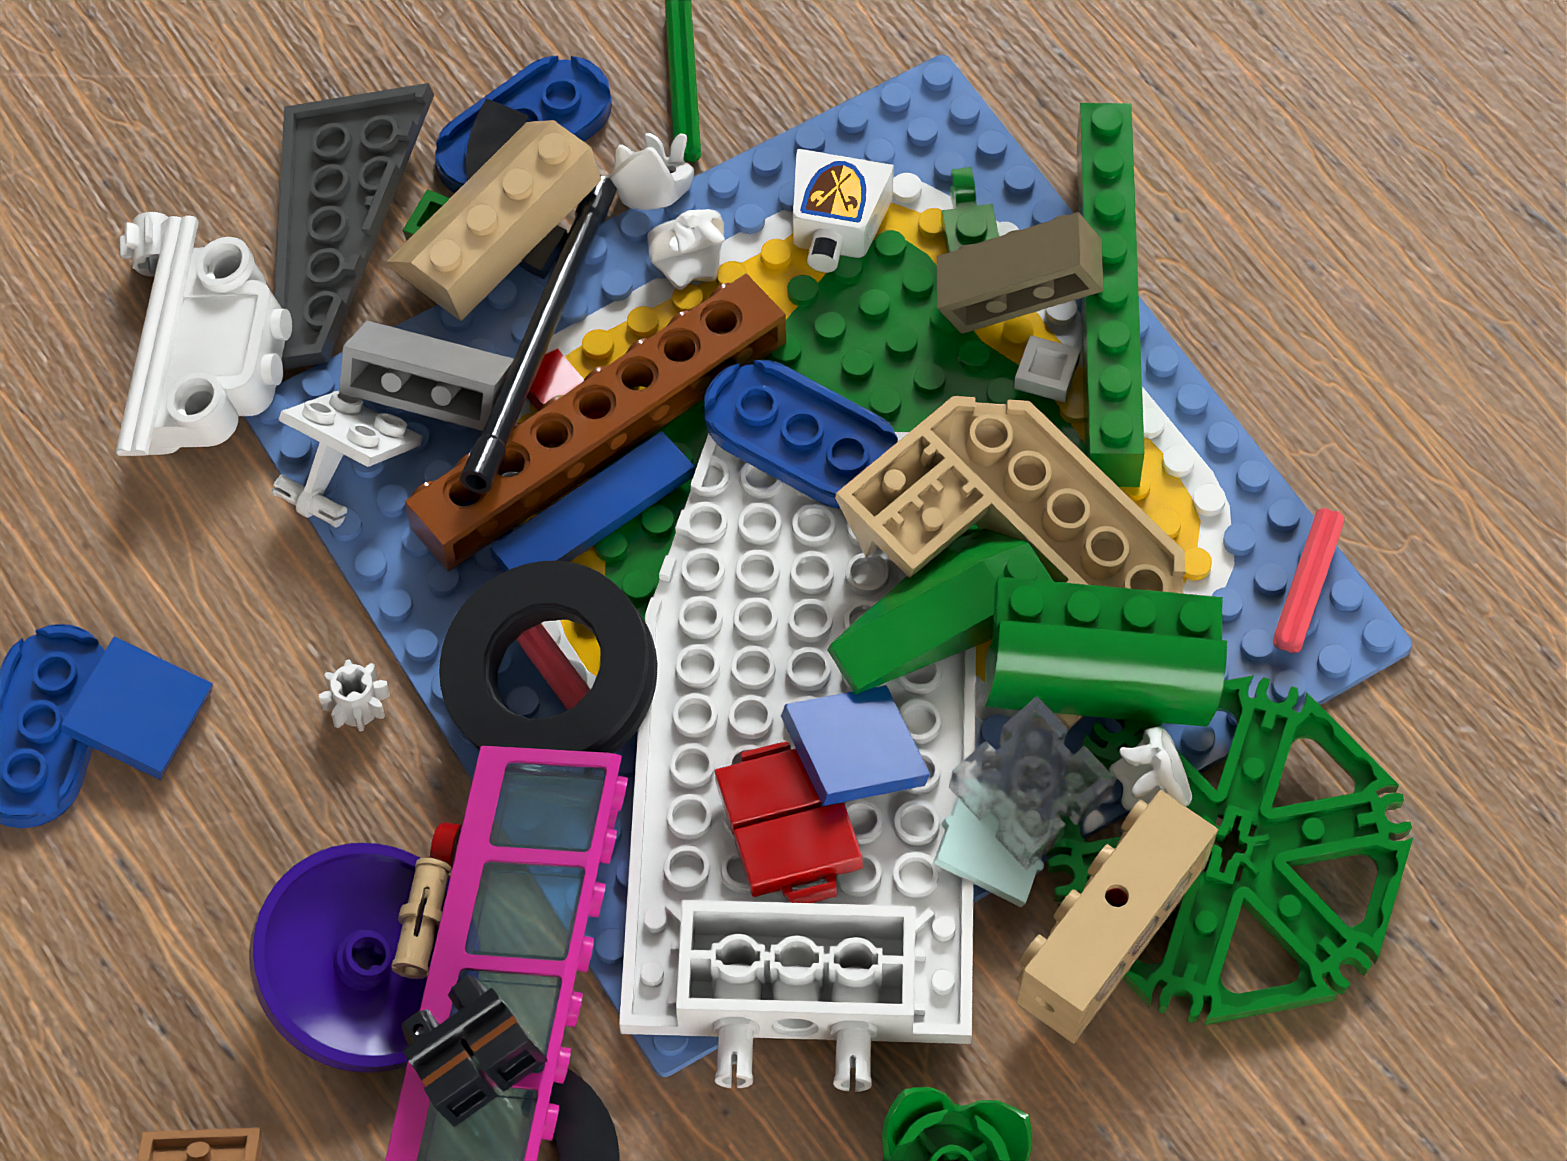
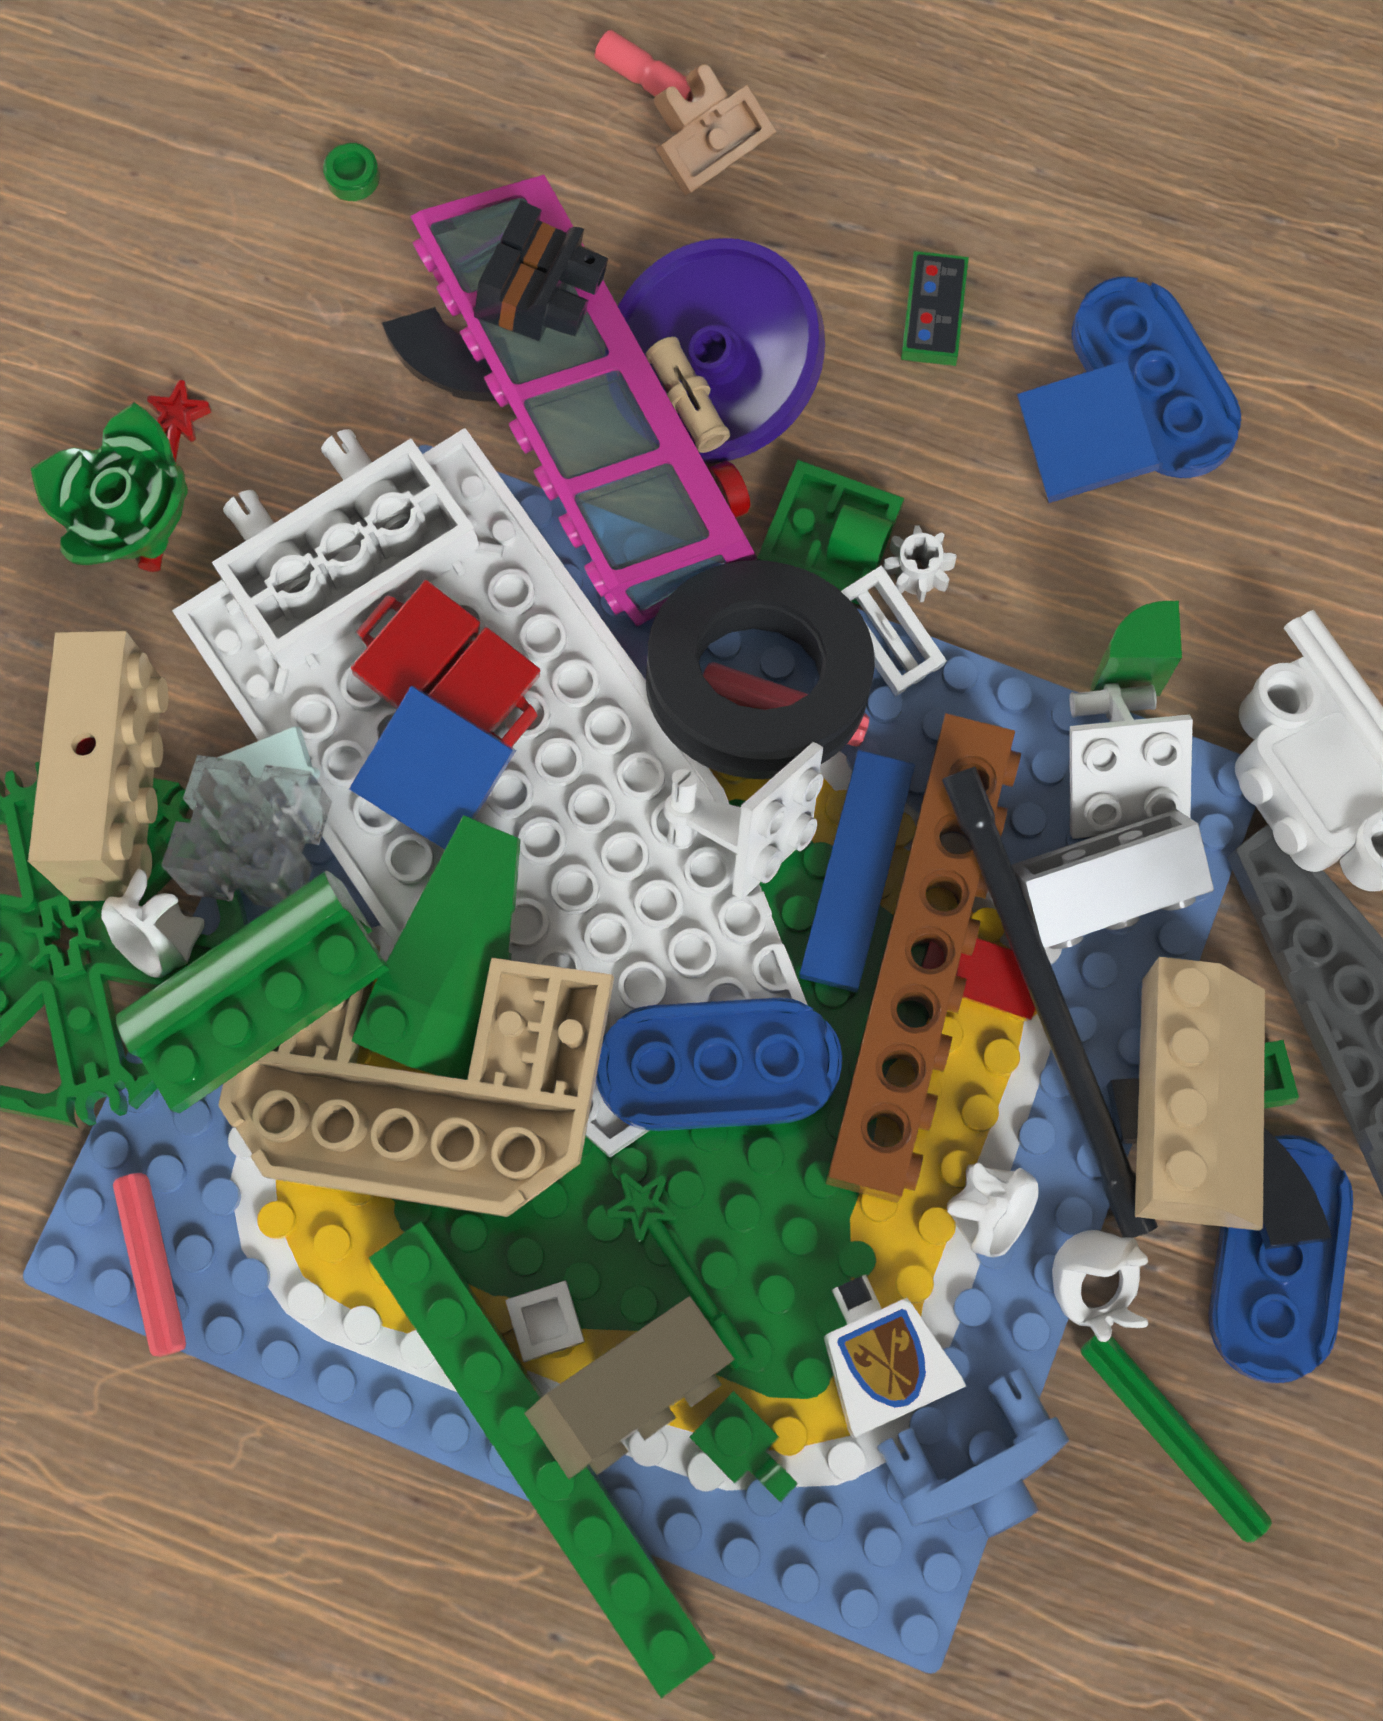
camera: 145 degrees right, 15 degrees up
(154, 895) = (934, 308): none -> tile
(263, 509) = (1143, 649): none -> green brick
(397, 766) = (831, 526): none -> green plate
(421, 690) = (909, 621): none -> white tile
(658, 540) = (762, 829): none -> white plate
(820, 105) = (996, 1485): none -> medium blue connector
(925, 396) = (647, 1214): none -> green piece

